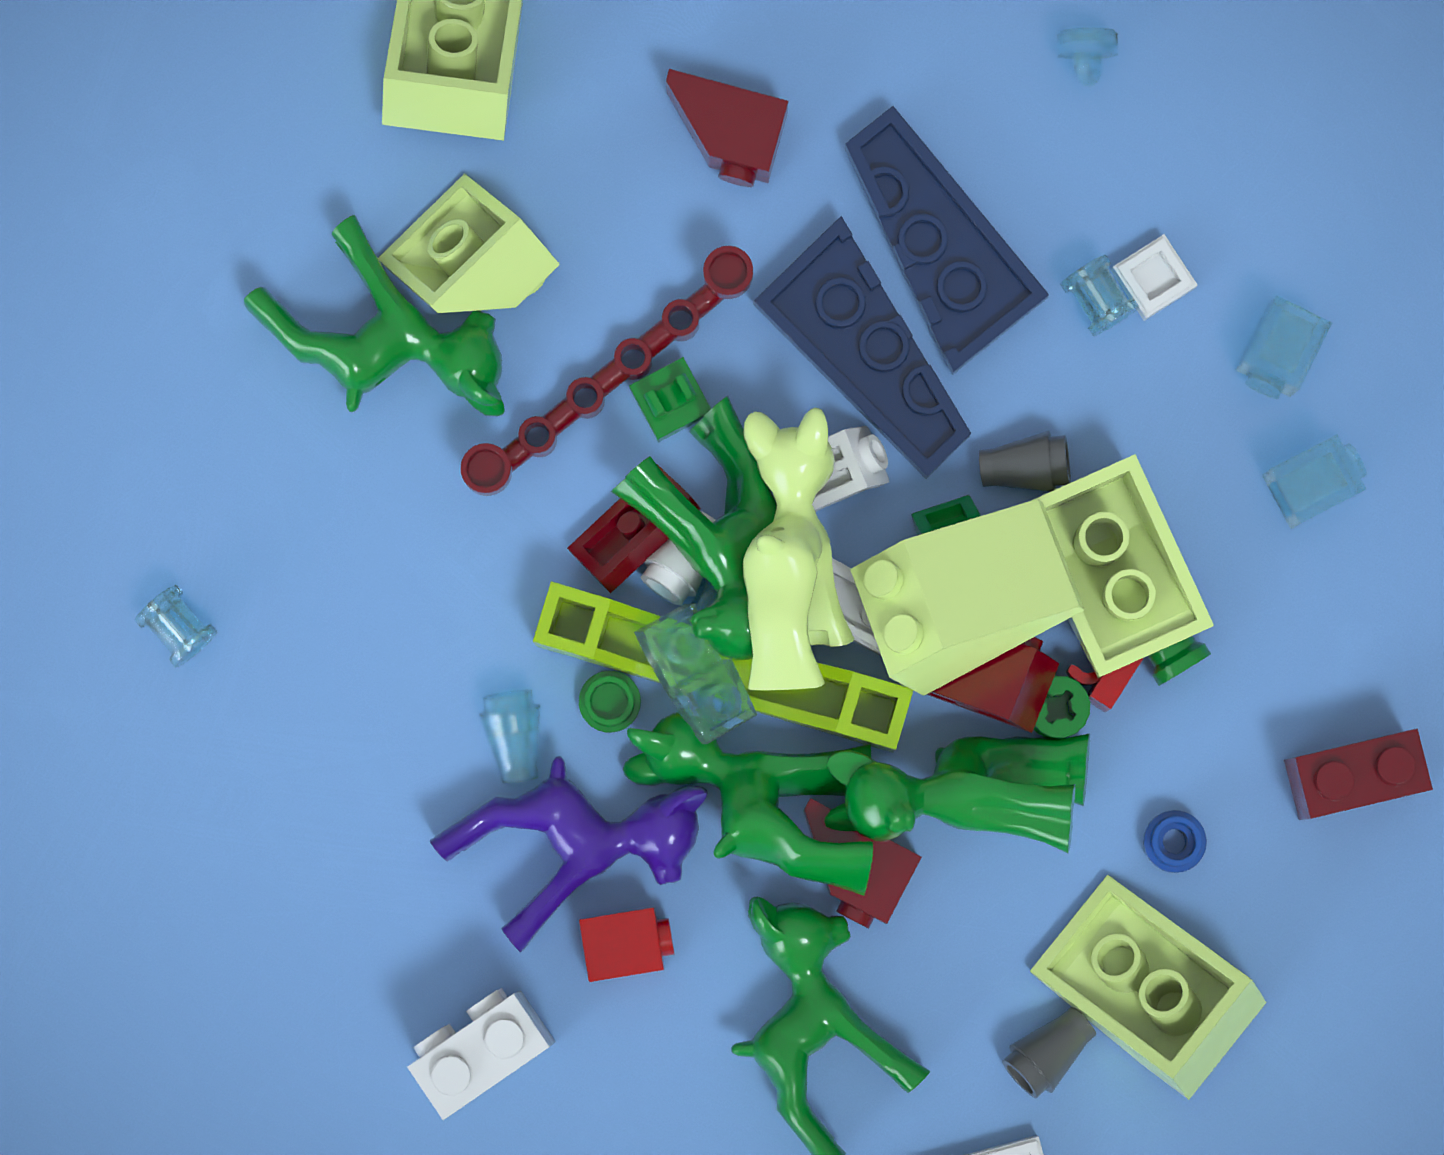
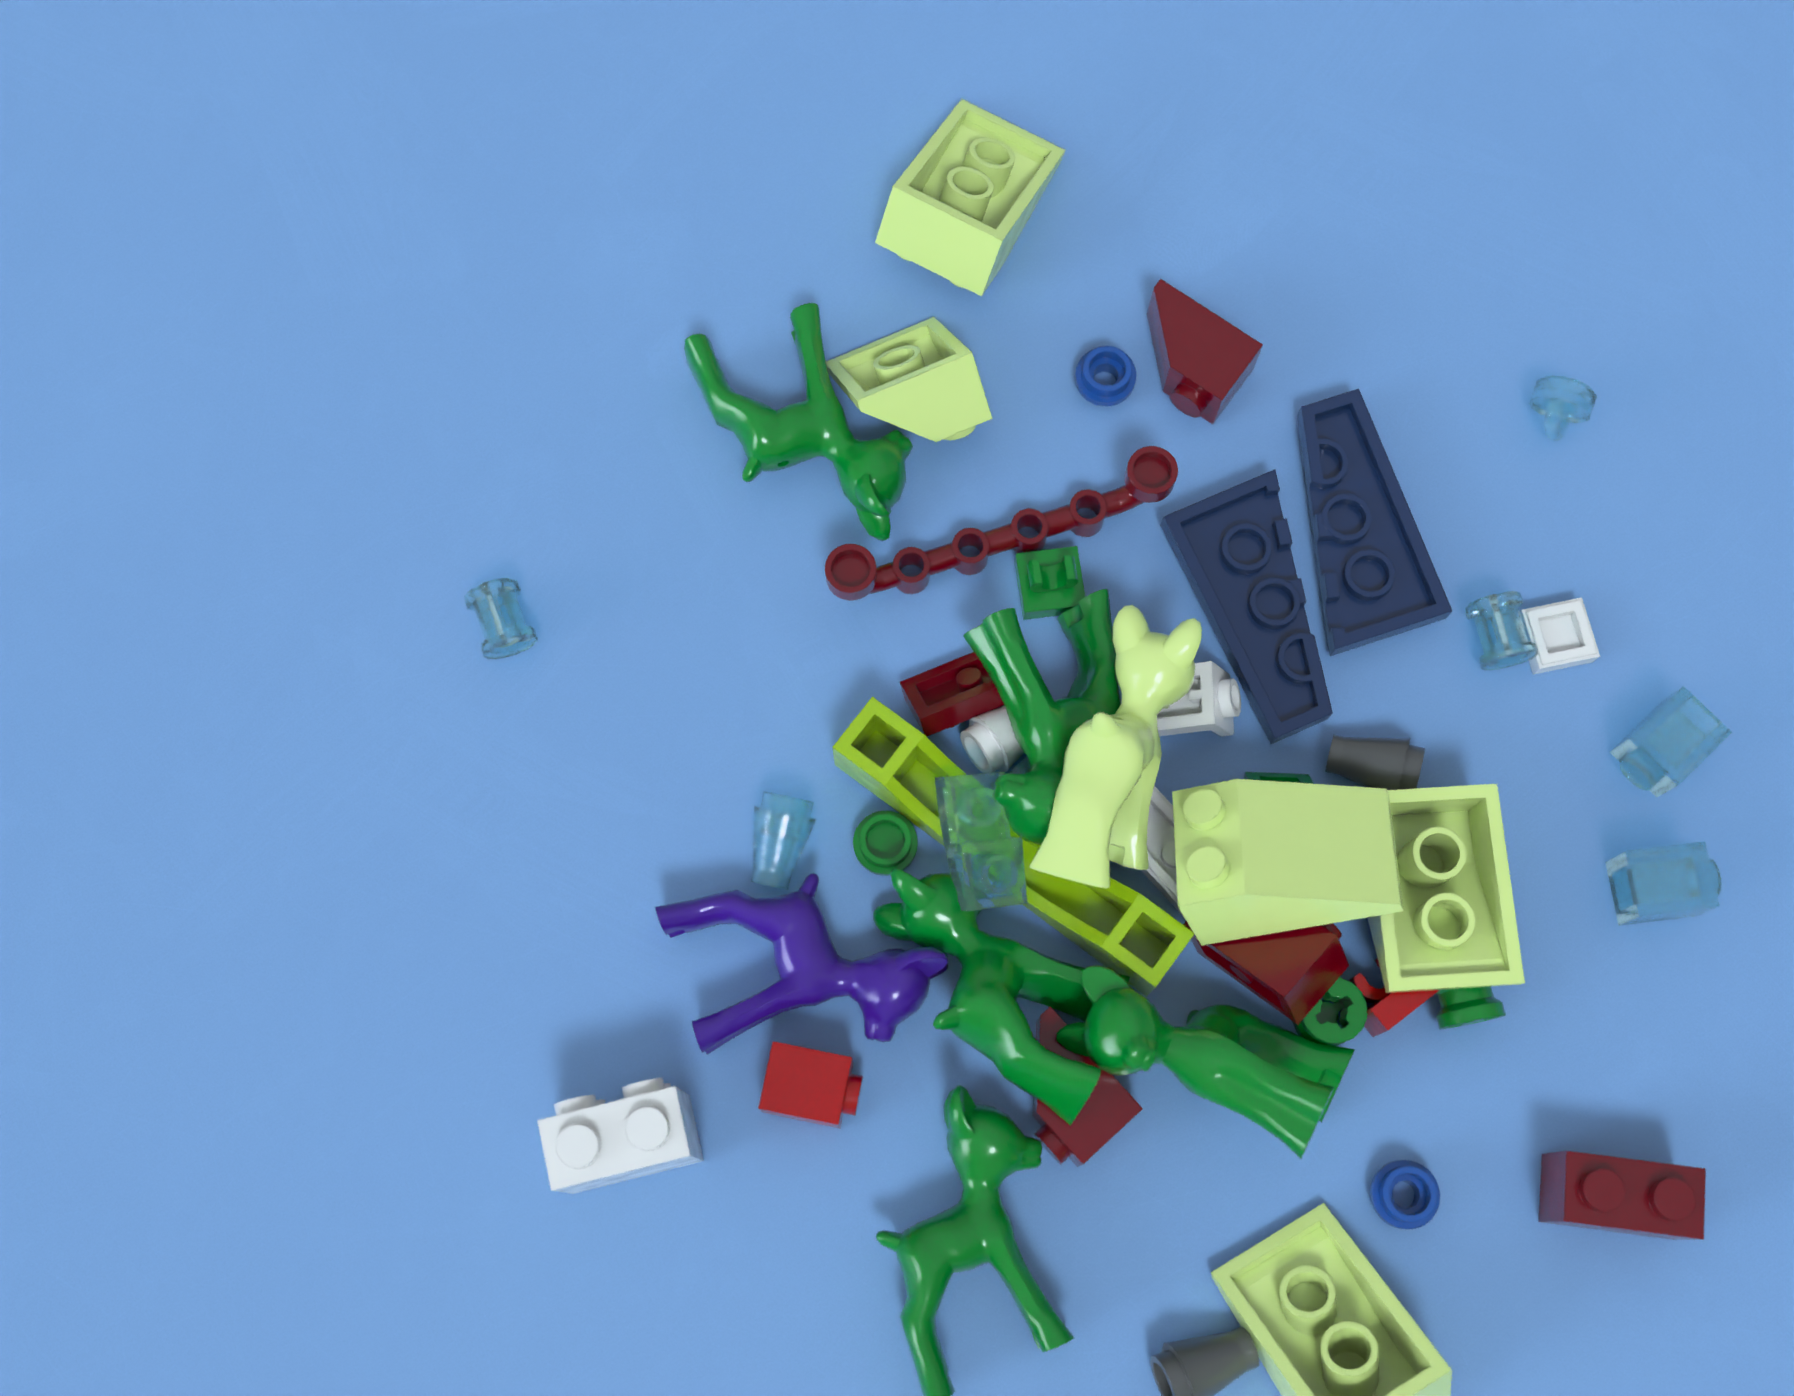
camera: 20 degrees right, 10 degrees down
(646, 157) = (1108, 360): none -> blue plate

